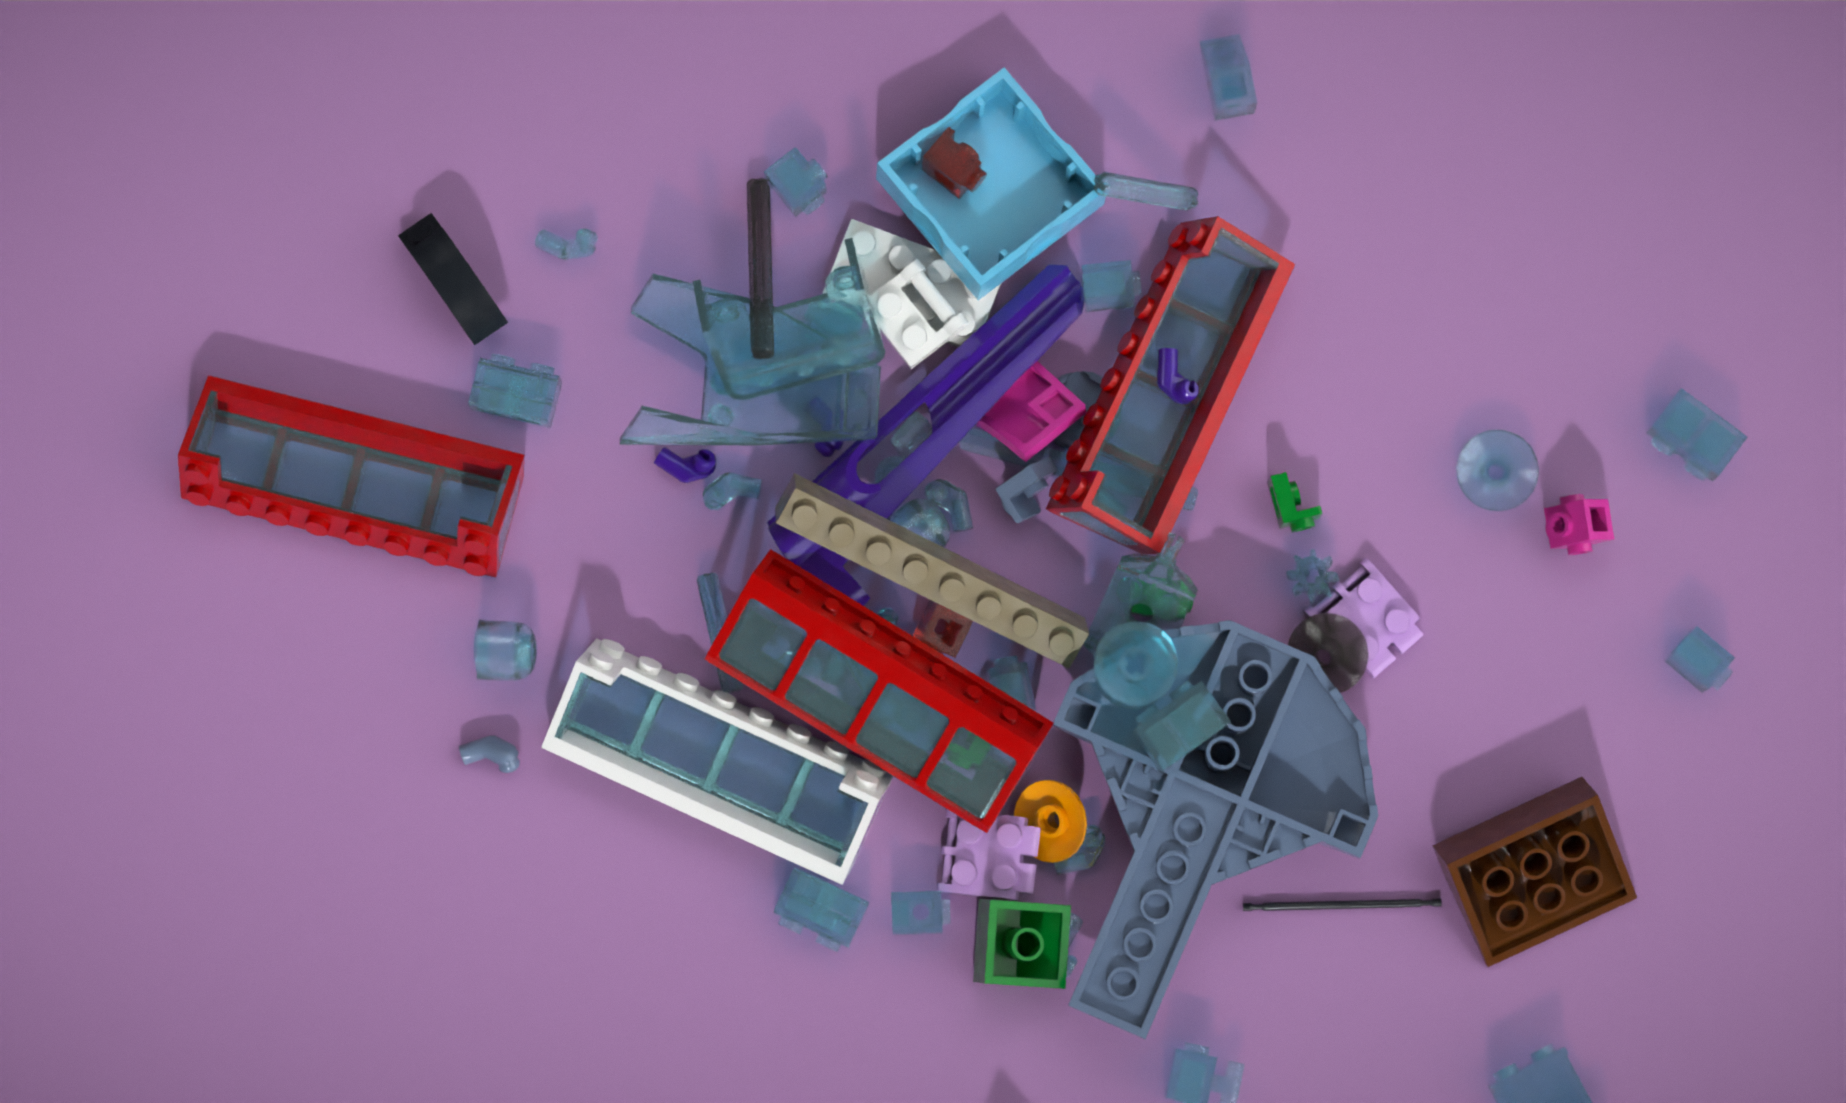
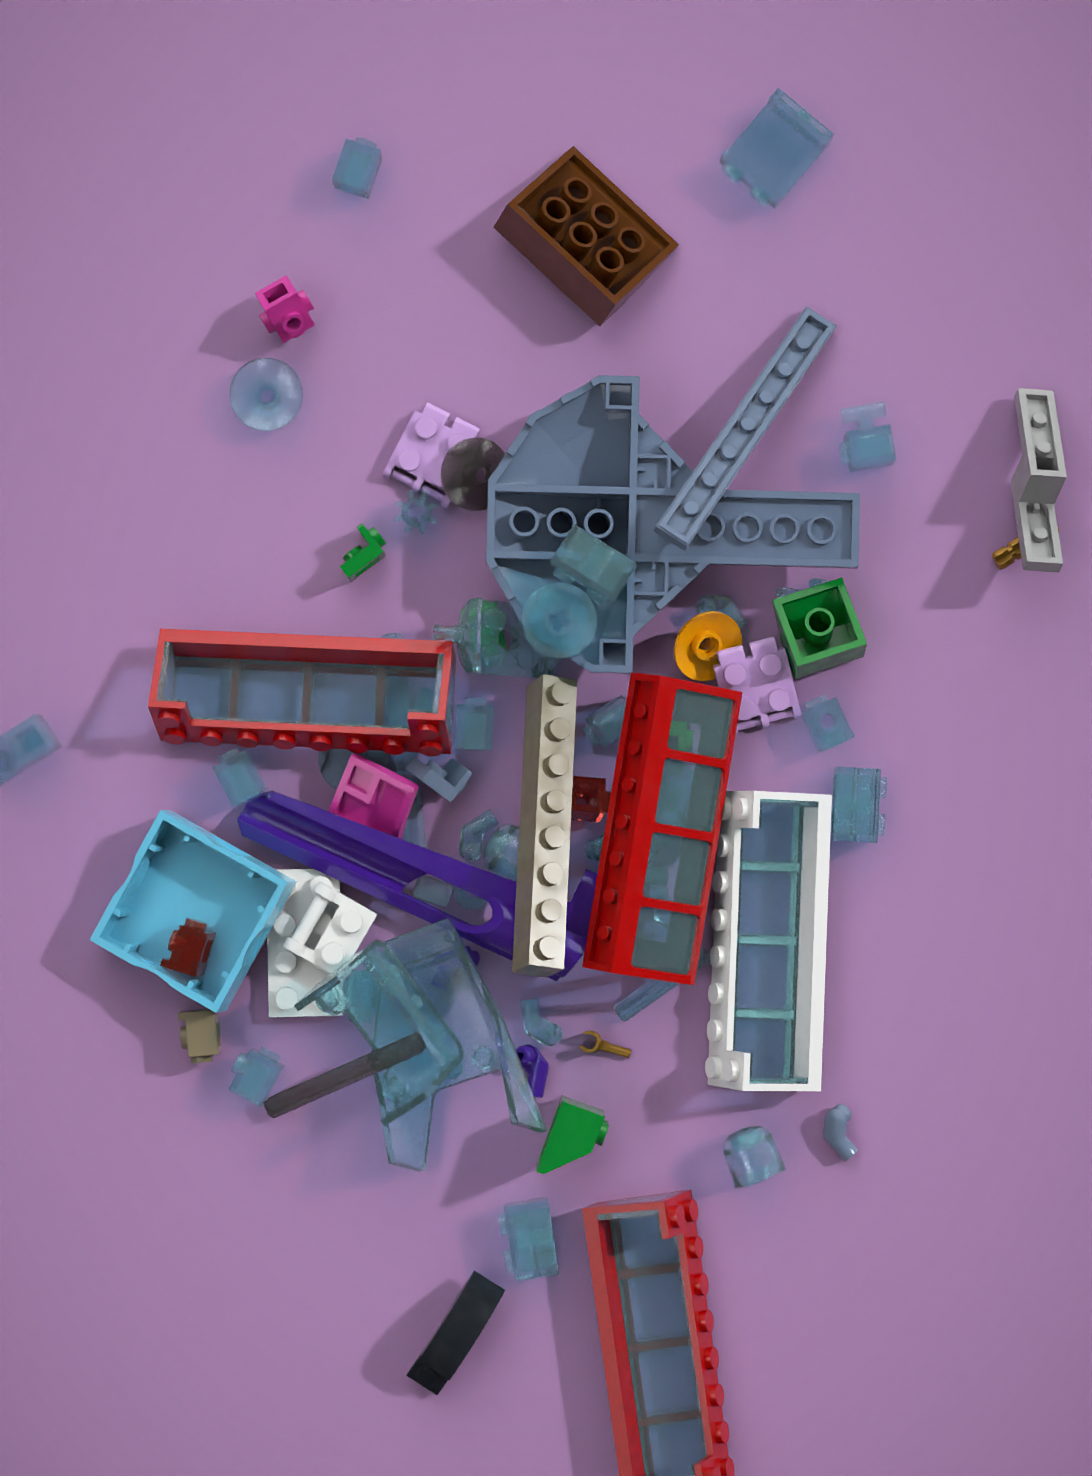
camera: 120 degrees left, 5 degrees up
(567, 249) = (391, 1247): clear light blue arm -> none
(605, 474) = (571, 1134): none -> green slope
(680, 547) = (603, 1045): none -> pearl gold hand
(861, 142) = (201, 1034): none -> dark tan brick
(1065, 546) = (474, 725): none -> clear light blue brick
(1145, 191) = (148, 778): clear light blue axle -> none
(1171, 381) = (301, 692): dark purple arm -> none
(1262, 949) = (744, 429): none -> sand blue tile
(1357, 904) = (673, 375): black piece -> none
(1696, 435) = (170, 242): clear light blue piece -> none

